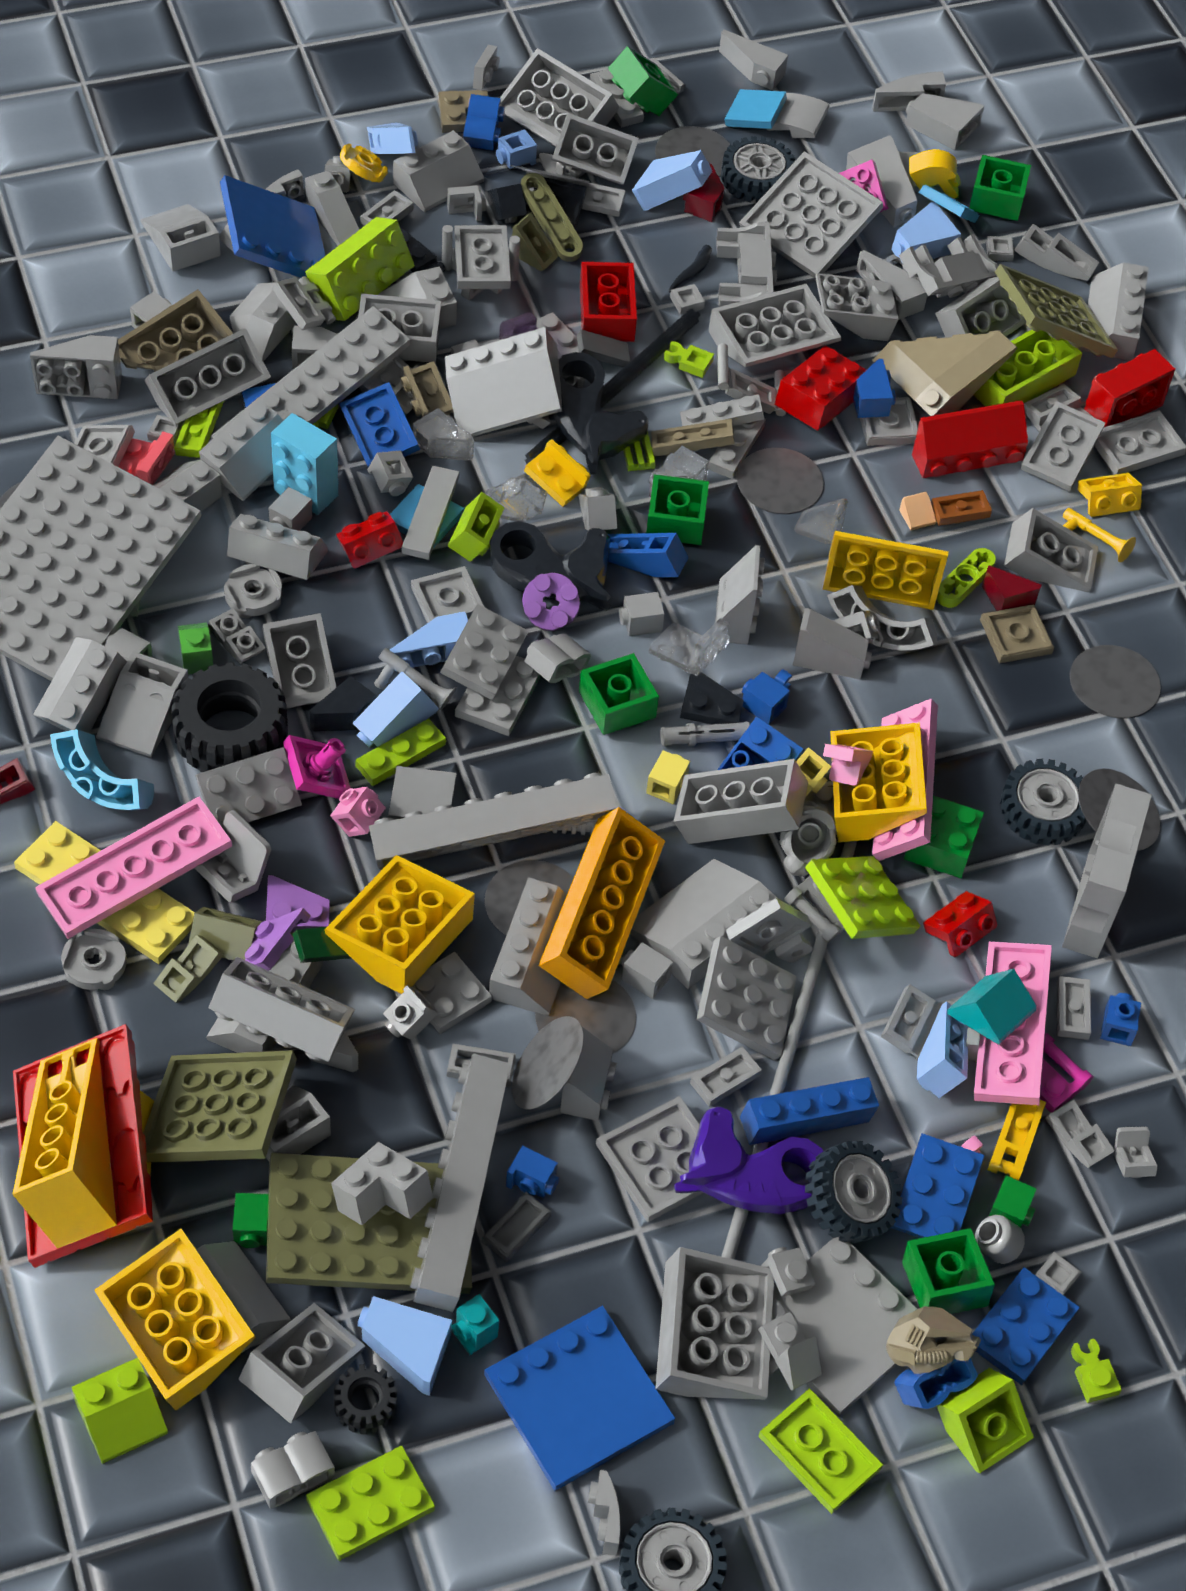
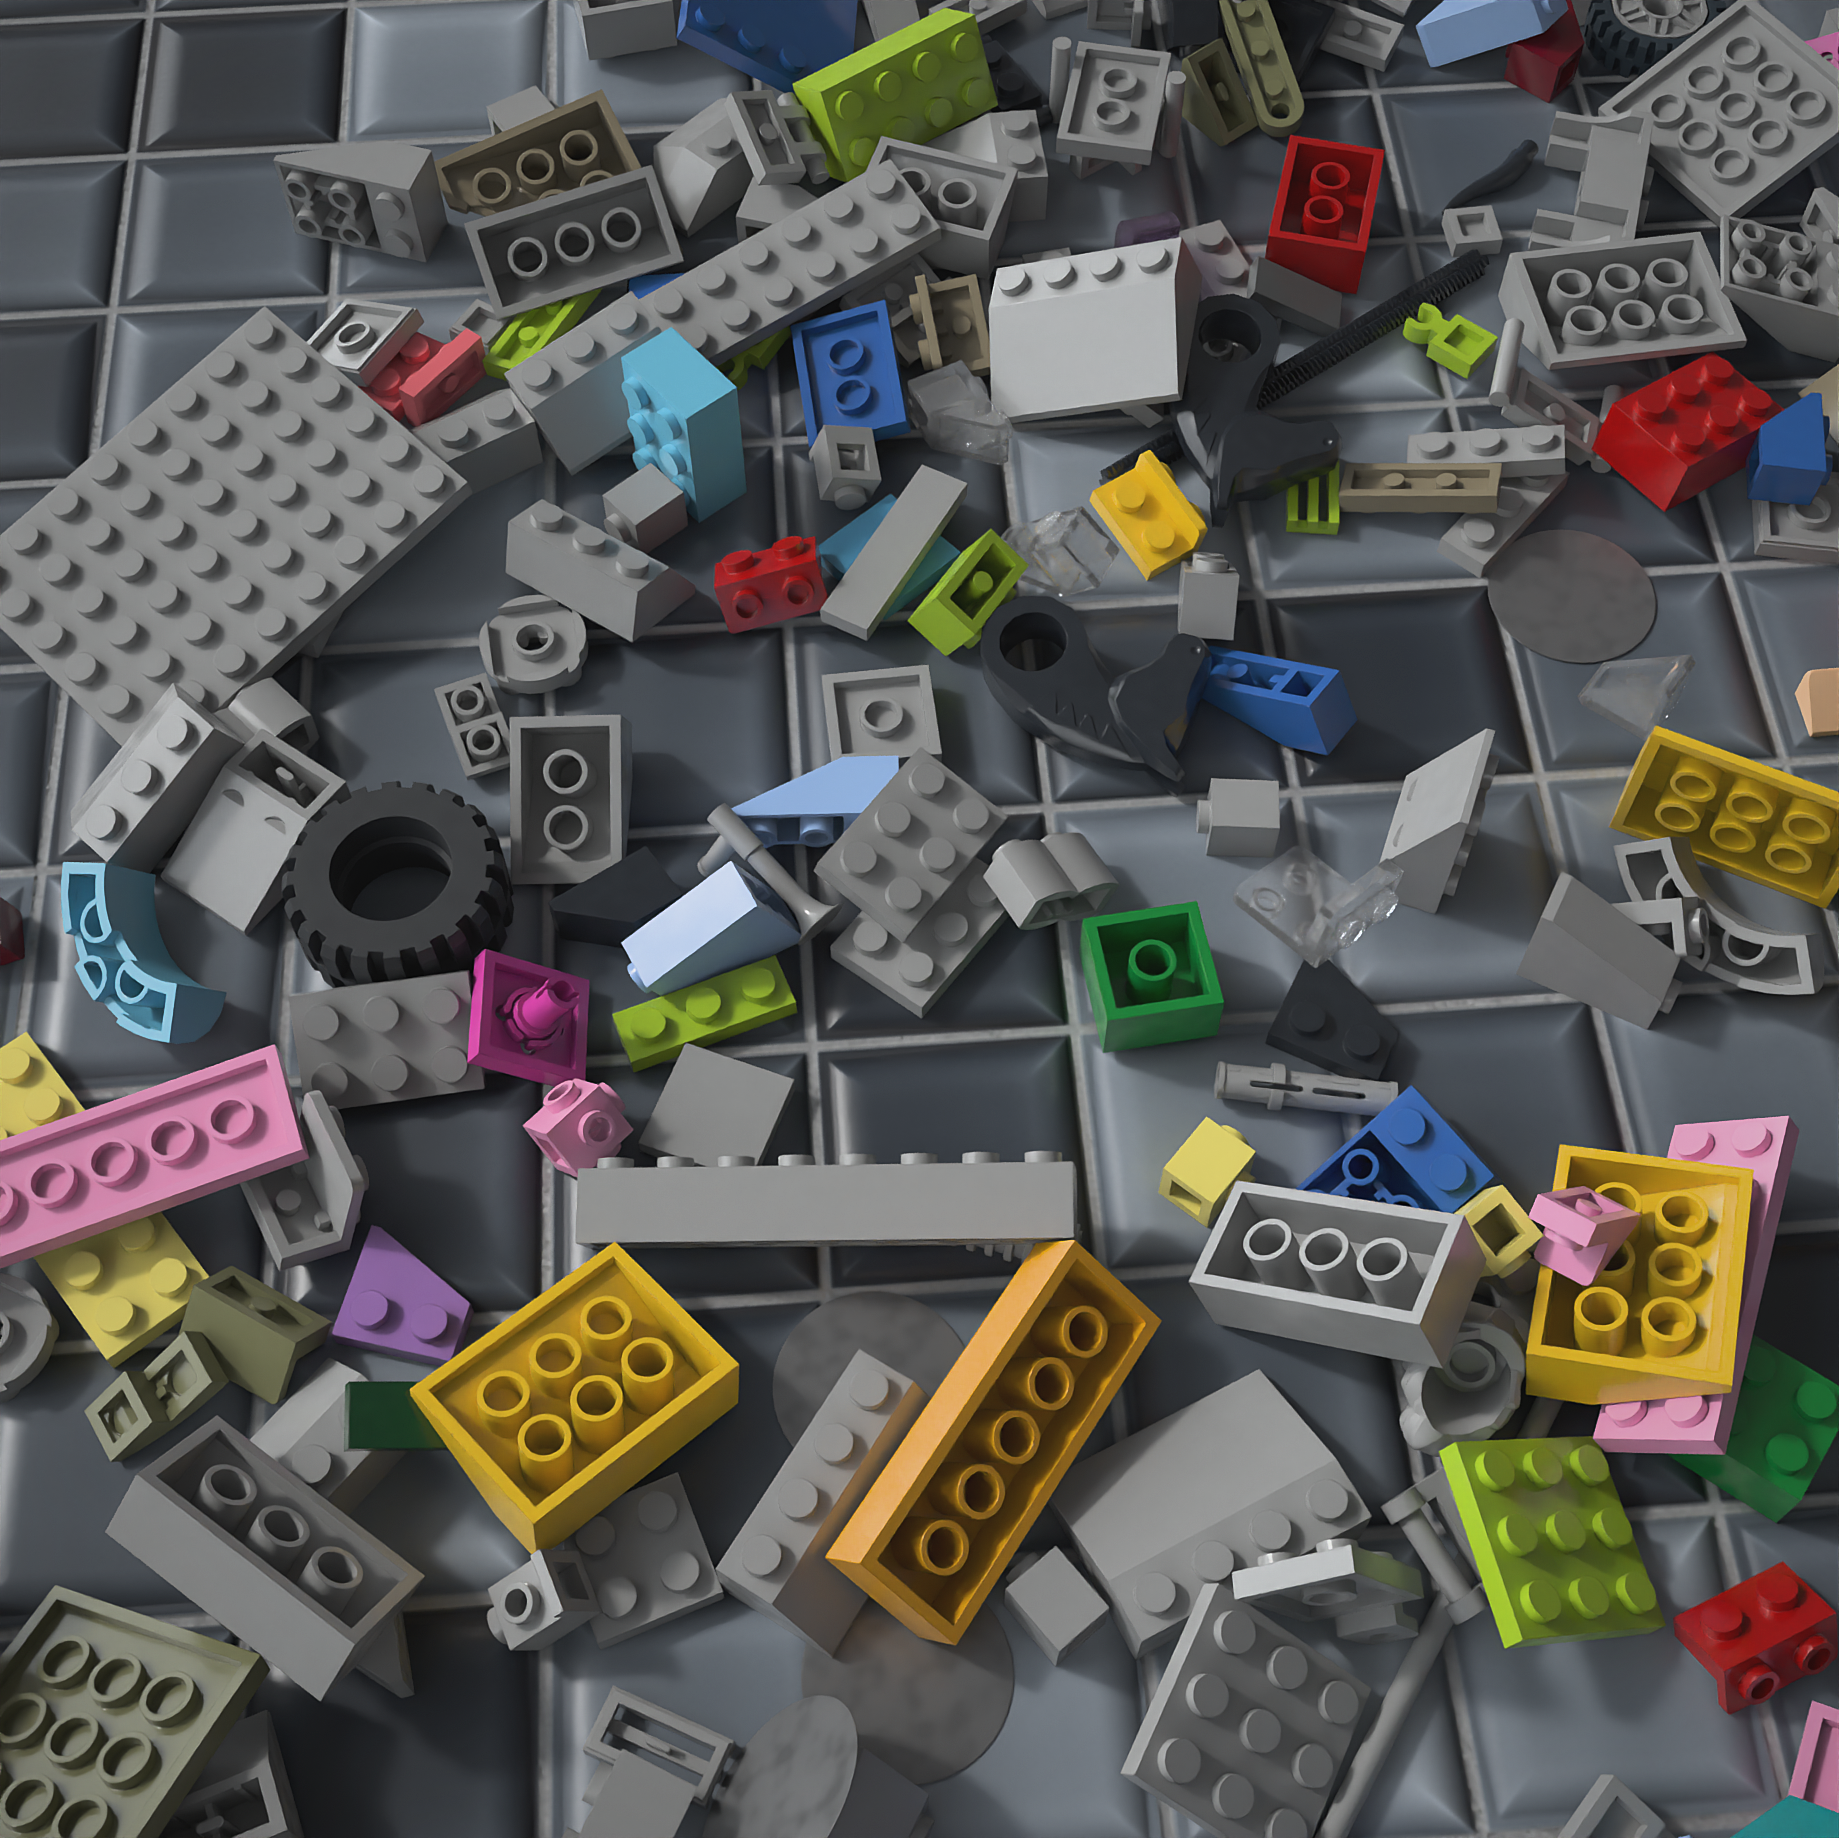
camera: 20 degrees right, 5 degrees up
(195, 647) = (393, 735): bright green slope -> none
(273, 938) = (313, 1383): medium lavender wing -> none
(543, 587) = (1077, 794): medium lavender plate -> none
(678, 507) = (1358, 620): green brick -> none
(682, 464) = (1378, 555): clear slope -> none
(767, 696) = (1446, 1034): blue brick -> none

